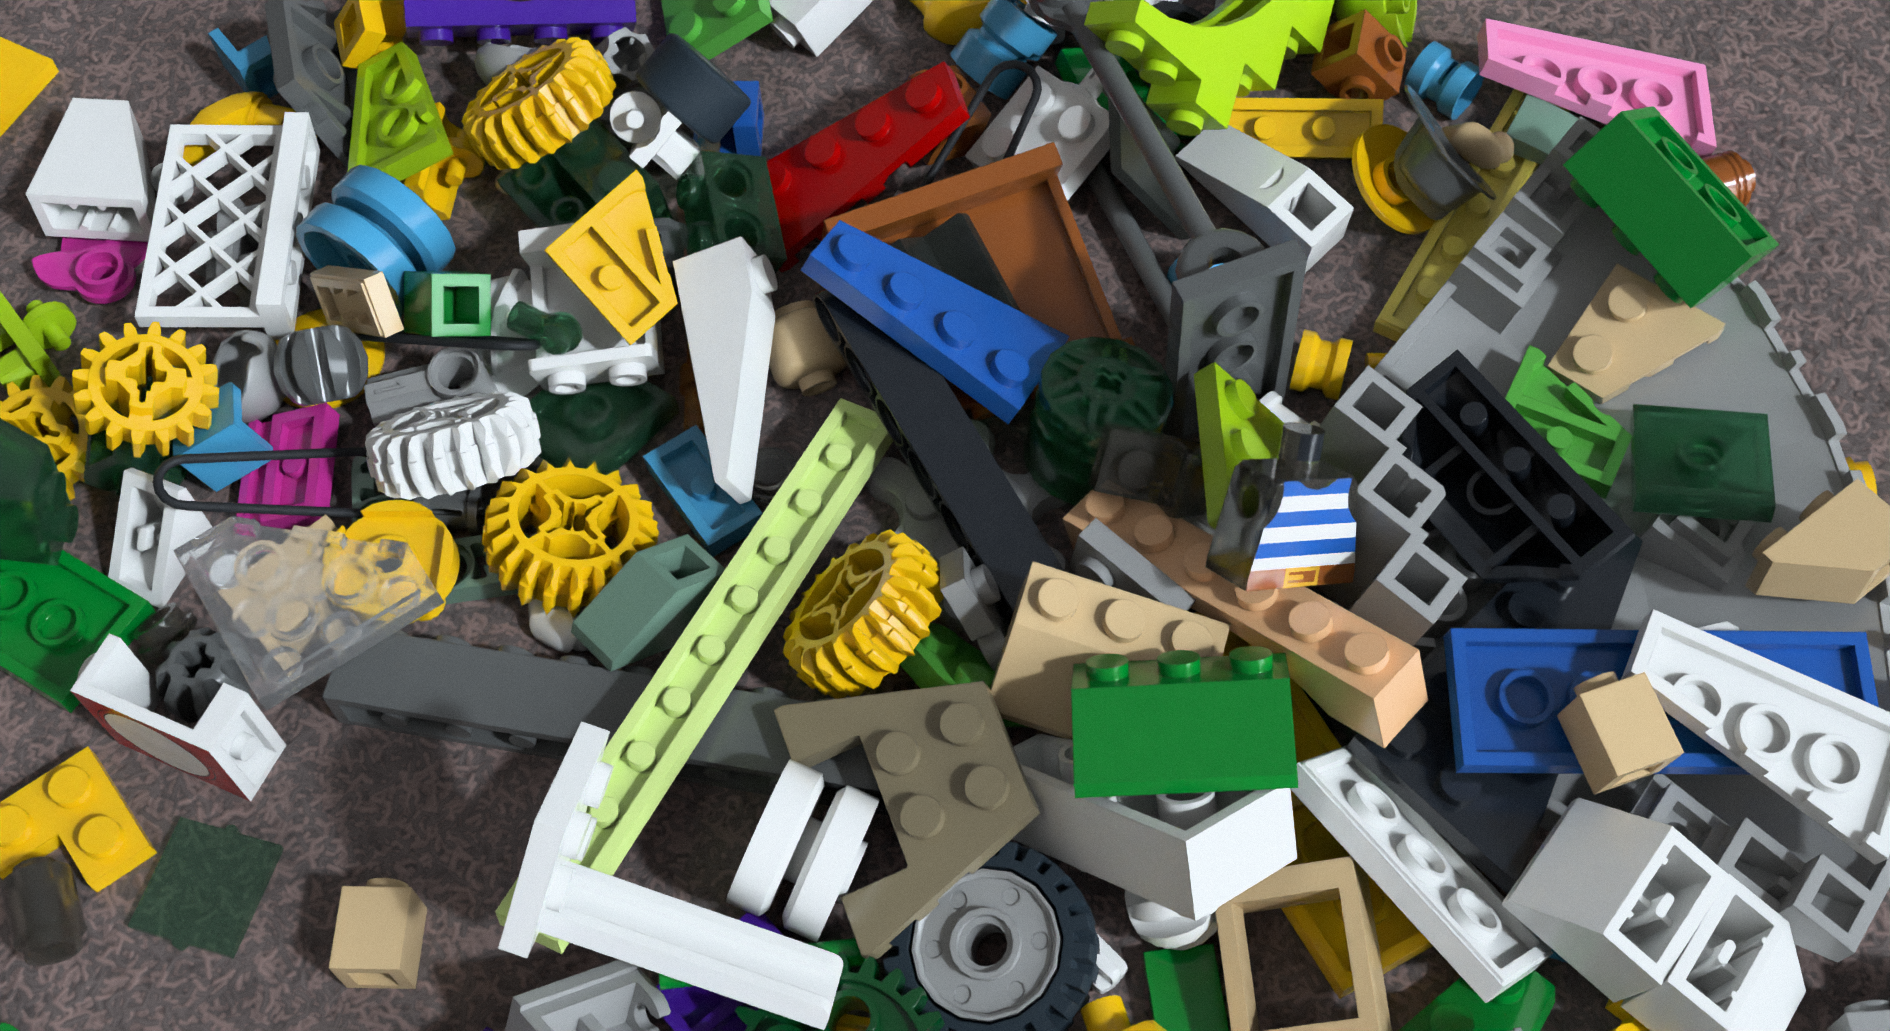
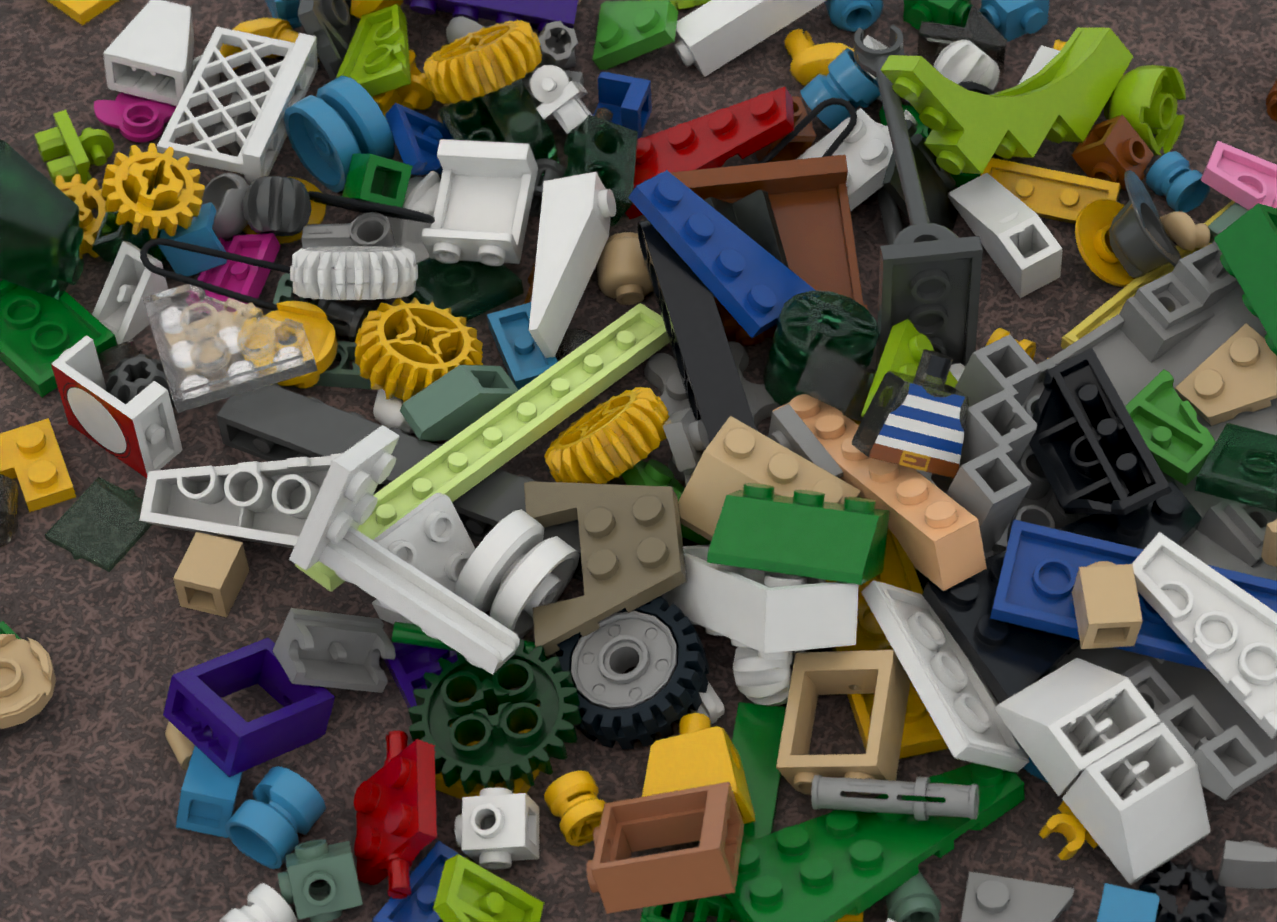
camera: 15 degrees right, 10 degrees down
(356, 300) = (314, 166): tan plate -> none
(415, 821) = (240, 500): none -> white wedge
(484, 228) = (417, 138): none -> blue wing
(556, 331) = (446, 213): clear green arm -> none
(619, 260) = (504, 171): yellow wing -> none
(680, 844) = (430, 541): none -> white bracket
(693, 88) = (597, 72): black wheel -> none

